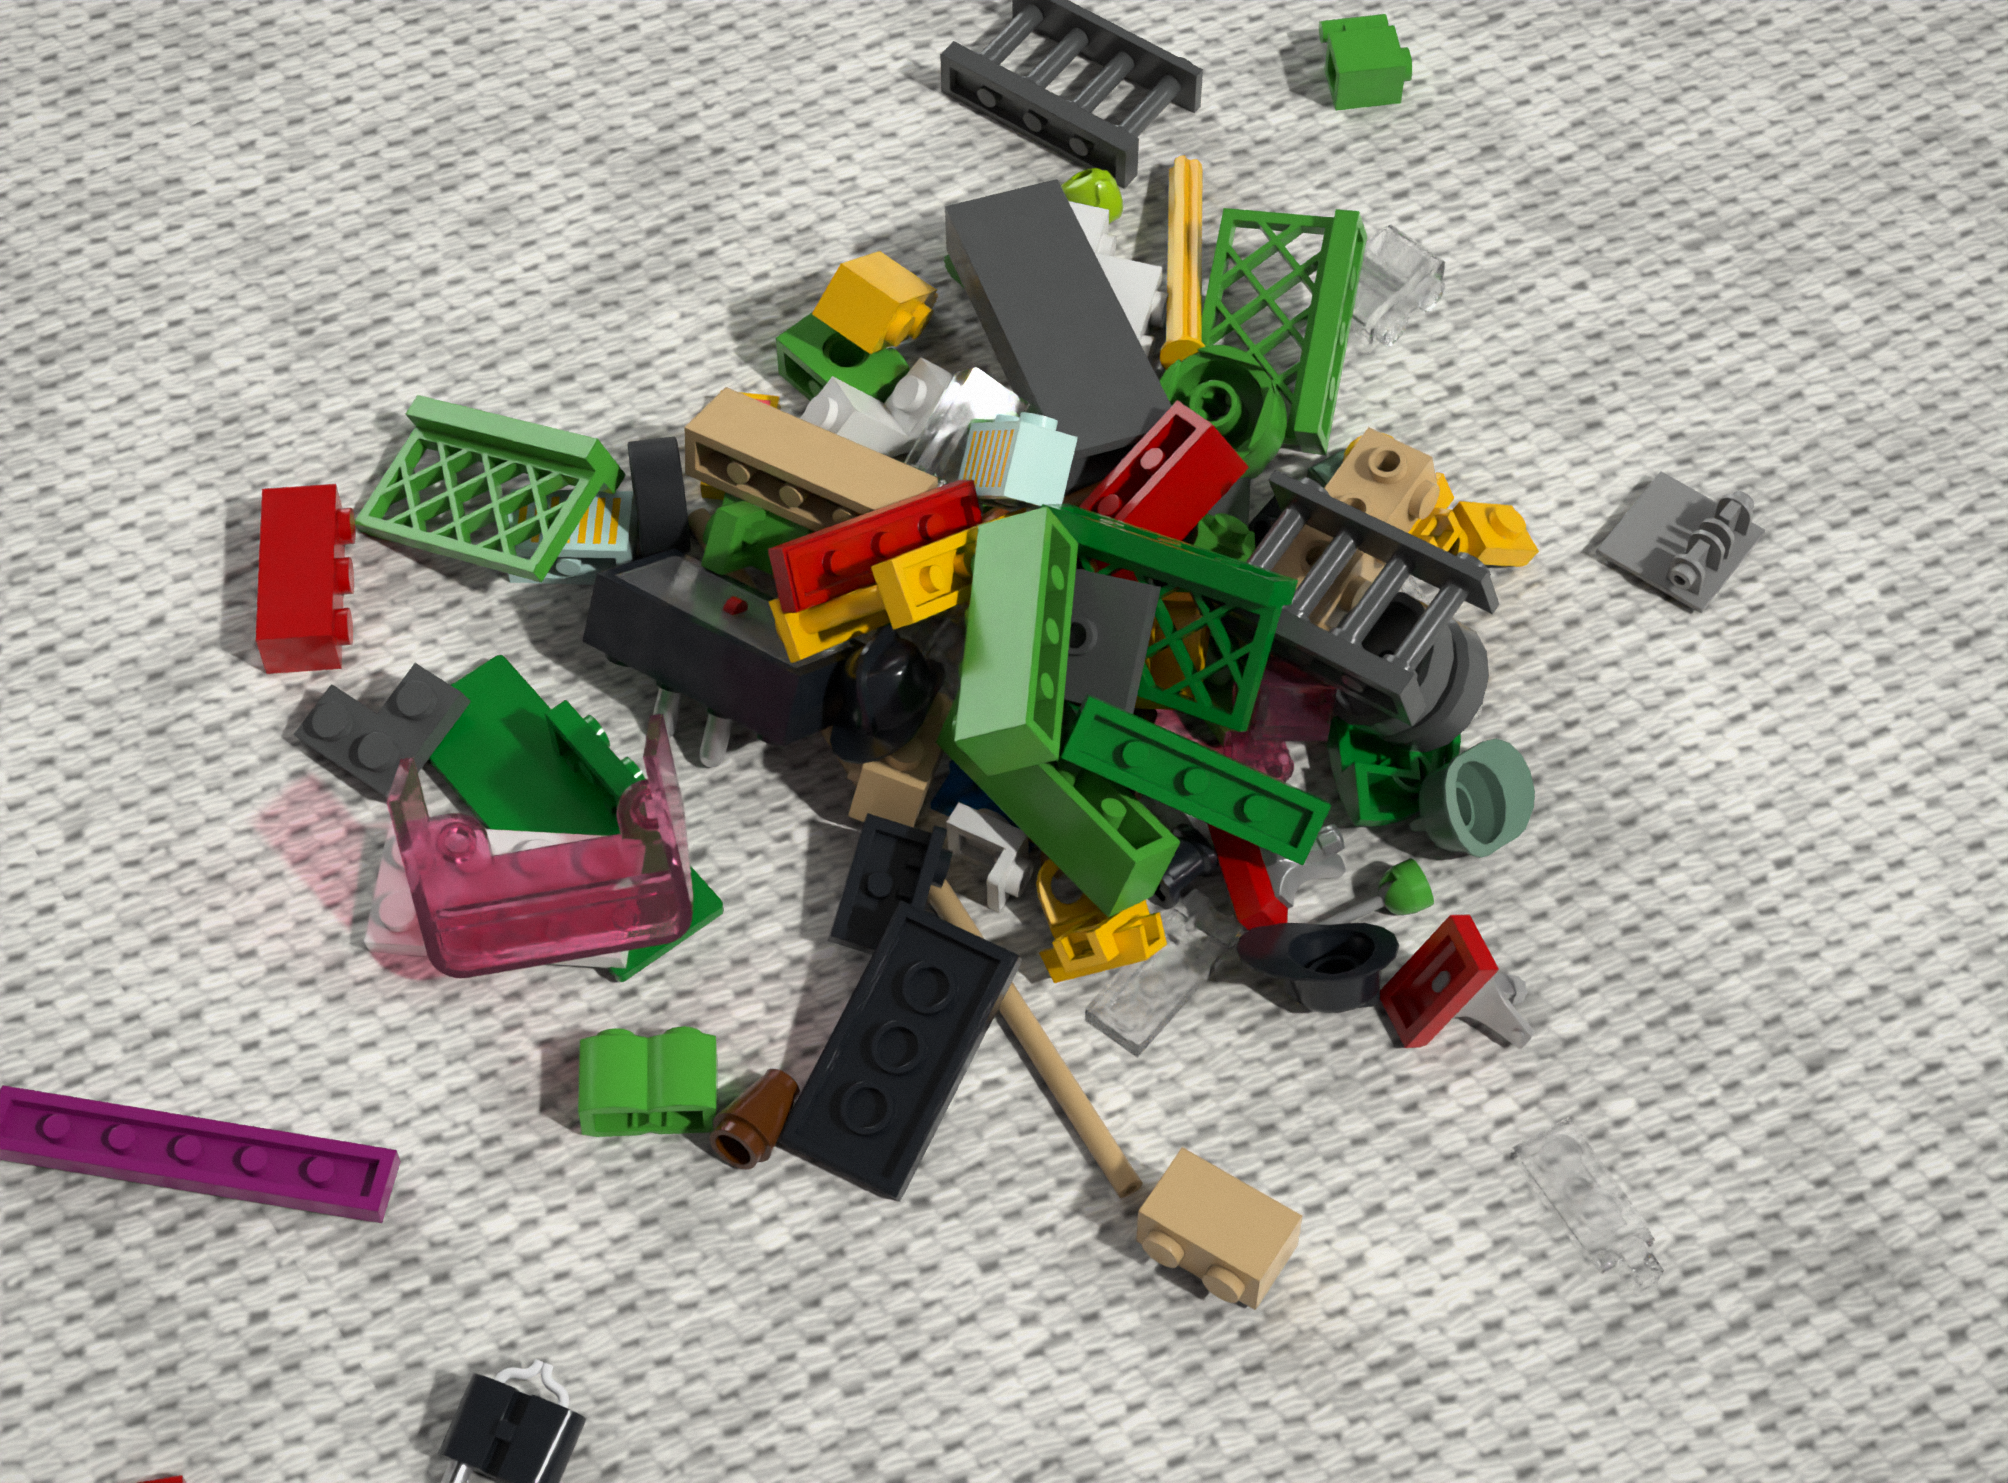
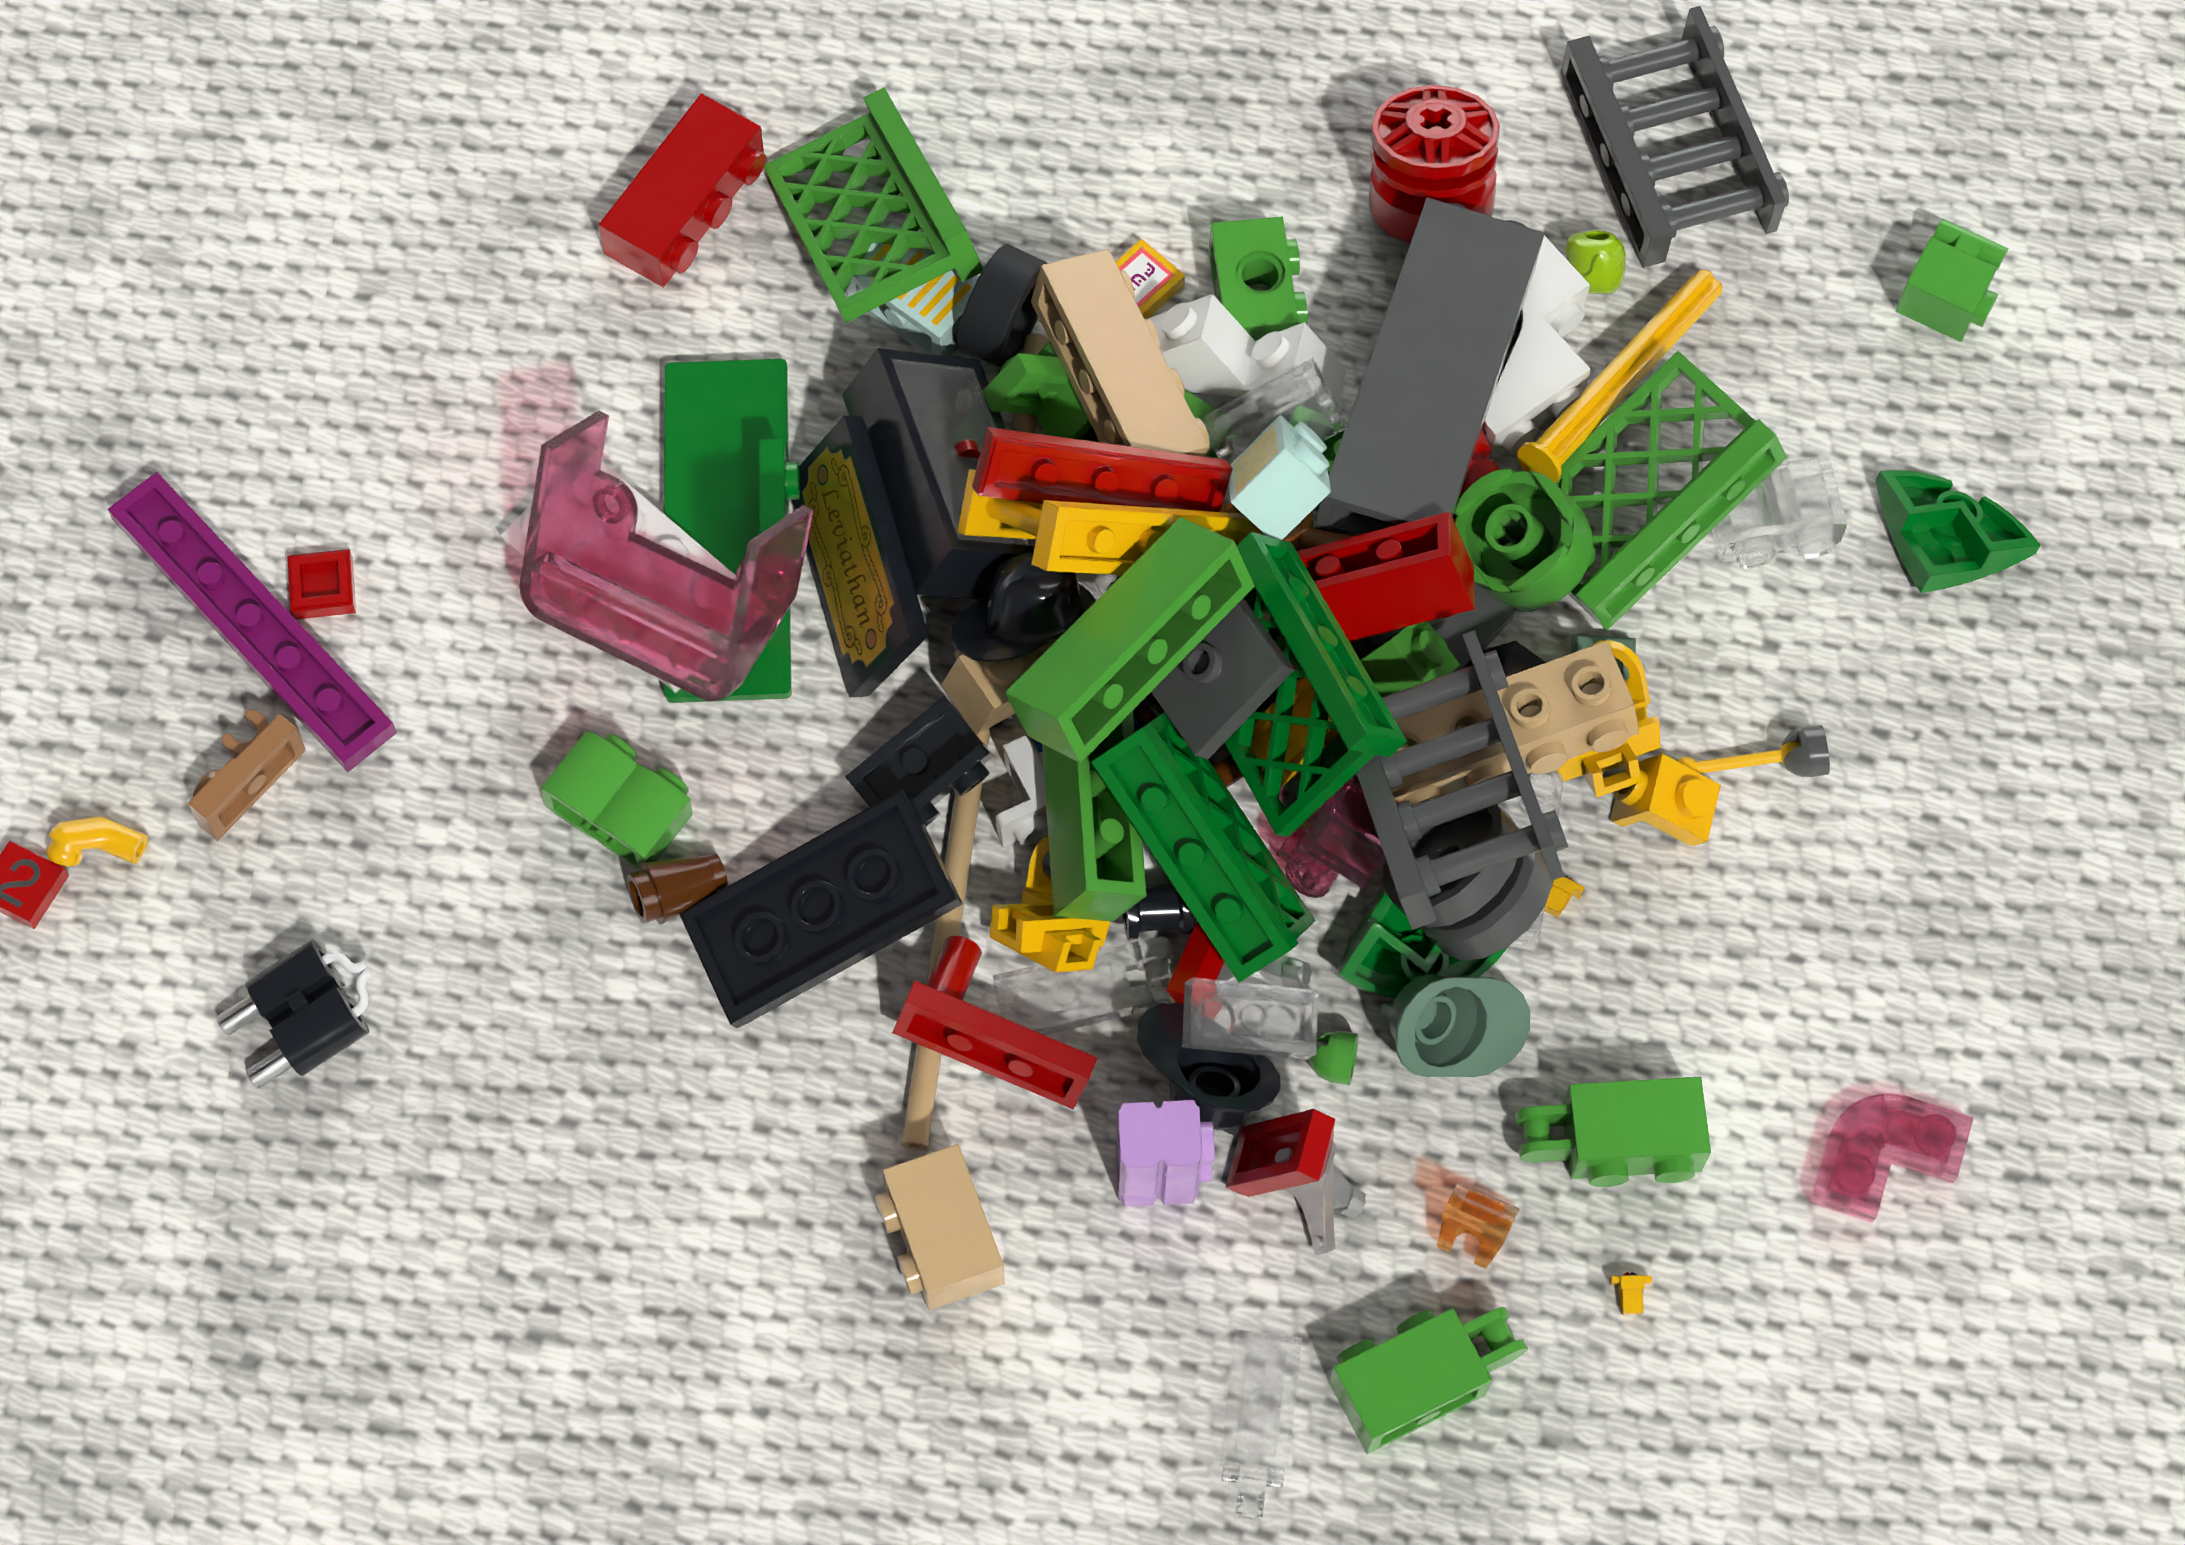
camera: 35 degrees right, 10 degrees up
(189, 1426) = (97, 832): none -> yellow arm
(229, 1085) = (321, 584): none -> red tile
(295, 1266) = (254, 767): none -> medium nougat plate
(373, 743) = (643, 379): dark grey plate -> none
(731, 772) = (858, 558): none -> tile
(876, 302) = (1313, 247): yellow hinge -> none
(904, 183) = (1435, 147): none -> red wheel
(1125, 1058) = (946, 1024): none -> red piece
(1324, 896) = (1250, 1018): none -> clear plate
(1346, 1044) = (1162, 1152): none -> lavender brick
(1511, 234) = (1945, 532): none -> green brick
(1550, 442) = (1802, 753): none -> hinge
(1614, 931) = (1478, 1215): none -> clear orange tile
(1670, 793) = (1622, 1130): none -> bright green brick
(1681, 1080) = (1419, 1373): none -> bright green brick
(1683, 540) = (1843, 916): light grey hinge -> none
(1775, 911) = (1631, 1291): none -> yellow piece
(1847, 684) = (1882, 1133): none -> clear pink plate

